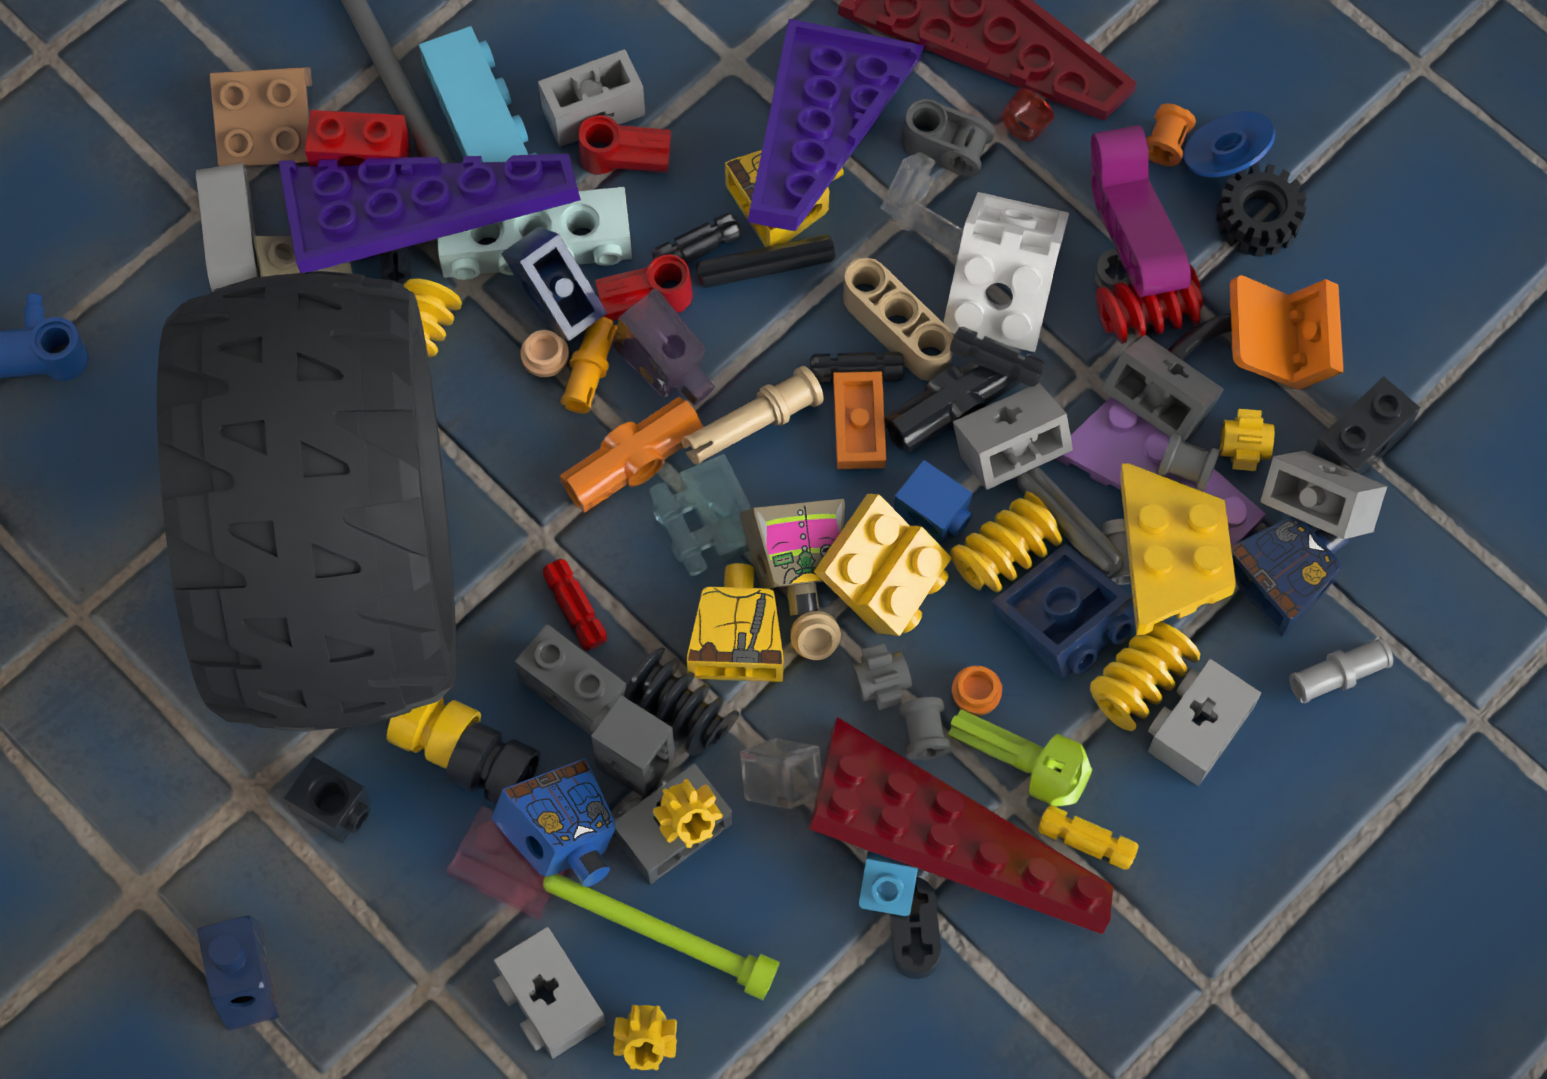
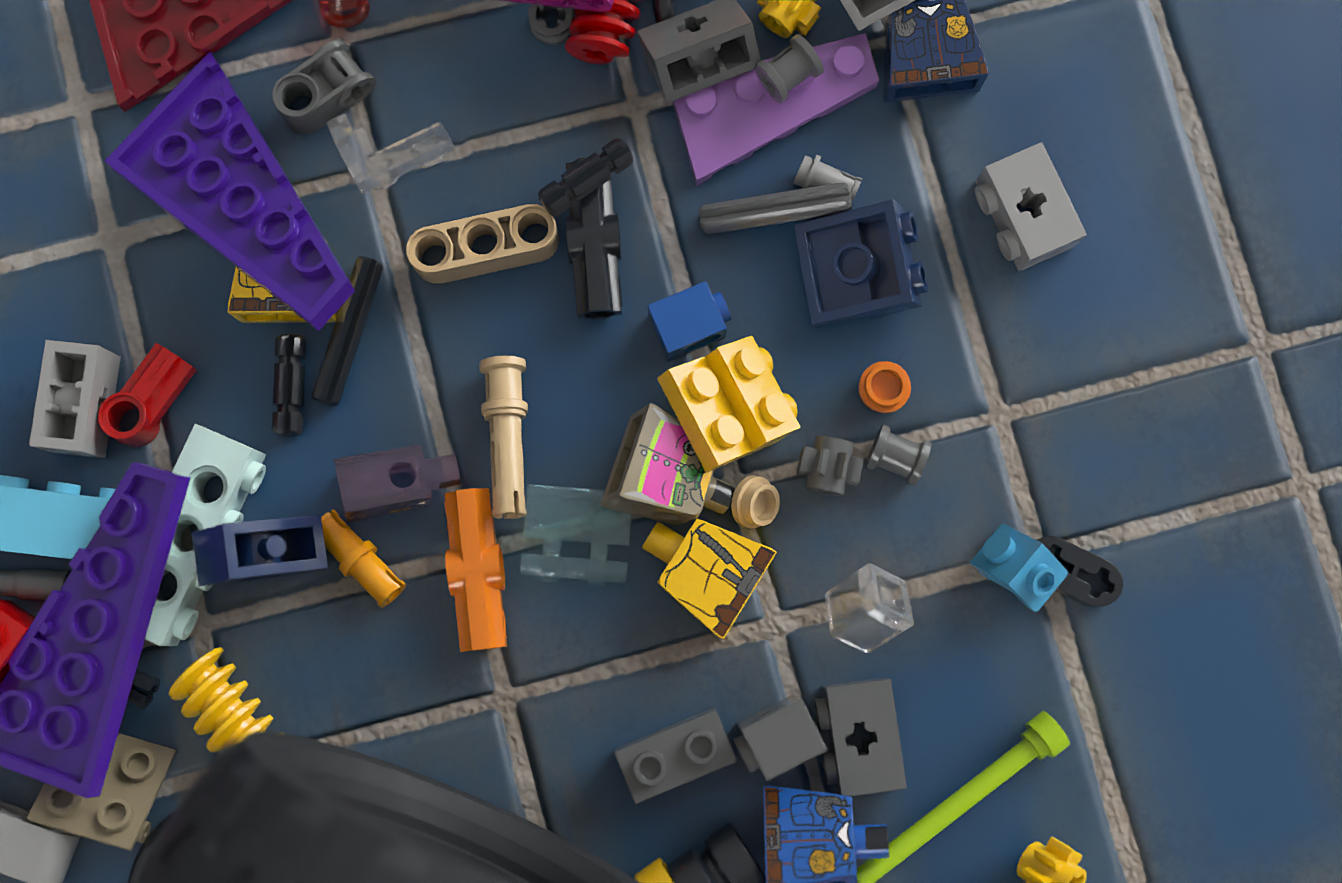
camera: 60 degrees left, 15 degrees up
(544, 353) = (320, 594): light nougat plate -> none
(574, 604) = (594, 706): red axle -> none
(625, 289) = (309, 470): red piece -> none
(678, 705) = (754, 665): black piece -> none
(687, 813) = (884, 727): yellow gear -> none
(859, 420) = (563, 338): orange plate -> none
(890, 364) = (506, 309): black axle -> none
(913, 817) = (988, 515): dark red wing -> none
(1006, 542) = (766, 277): yellow piece -> none
(1009, 246) = (477, 96): white bracket -> none
(1013, 436) = (665, 209): light grey brick -> none
(1042, 763) = (1006, 362): lime piece -> none
(1088, 837) = (1073, 371): yellow axle -> none
(1139, 671) = (956, 232): yellow piece -> none
(1174, 547) = (862, 132): yellow wing -> none
(1341, 670) = (1045, 60): light grey pin -> none

